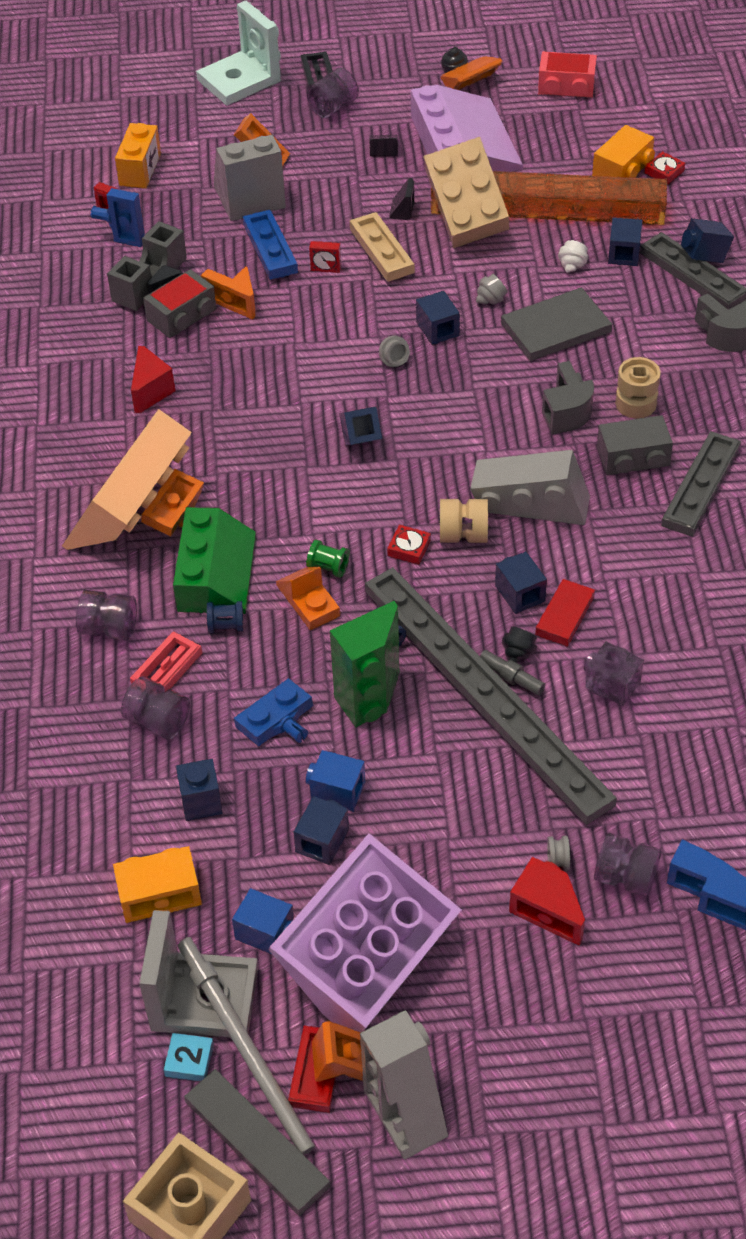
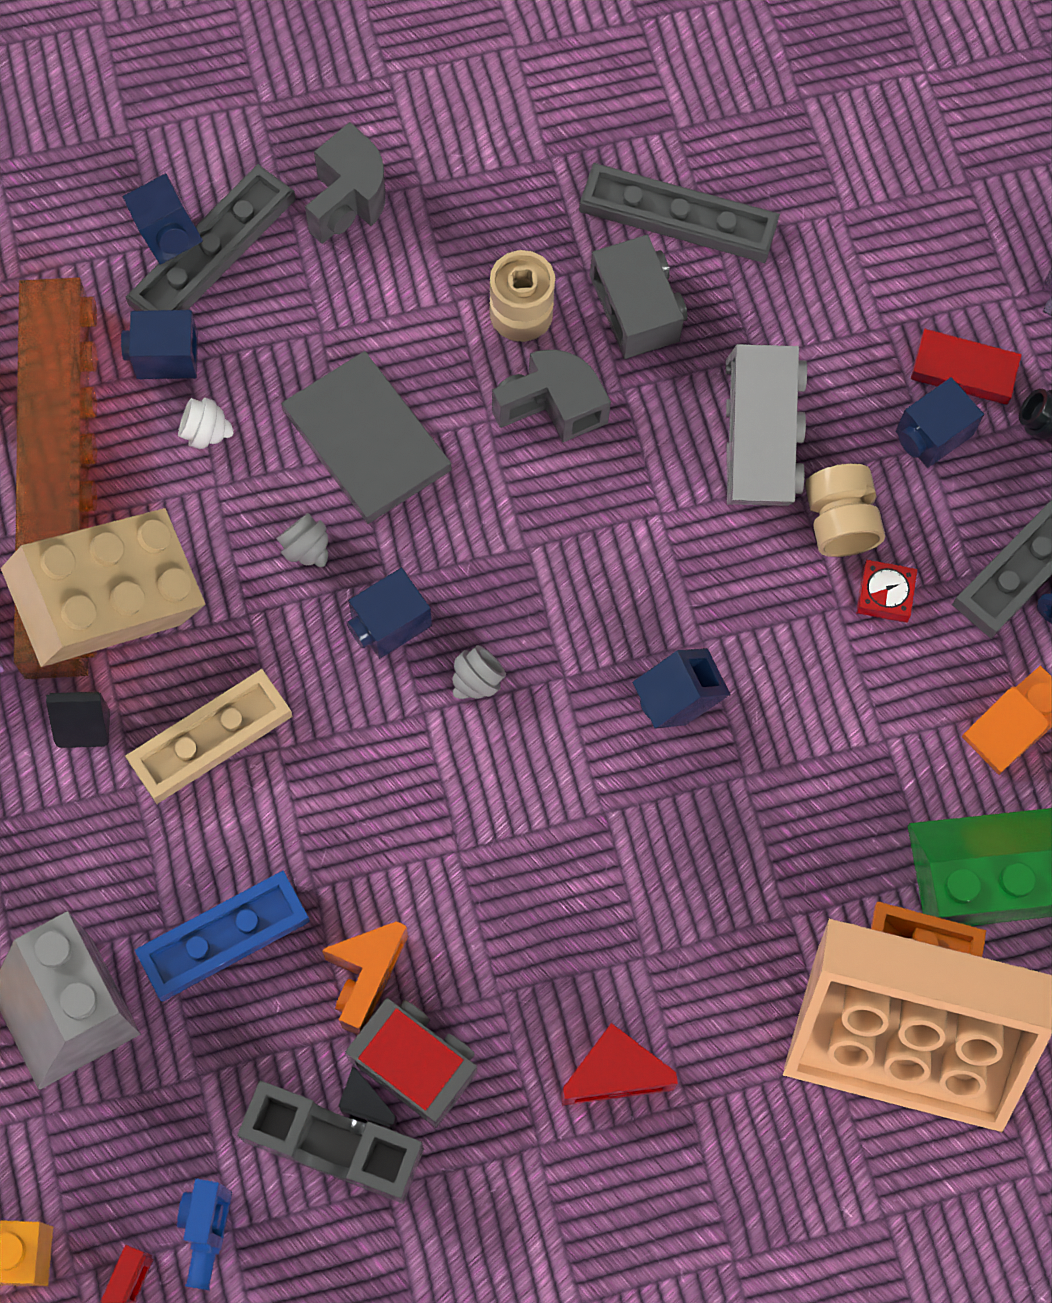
camera: 105 degrees left, 20 degrees up
(325, 256) = (252, 826): tile -> none
(328, 558) = (952, 697): green bush -> none

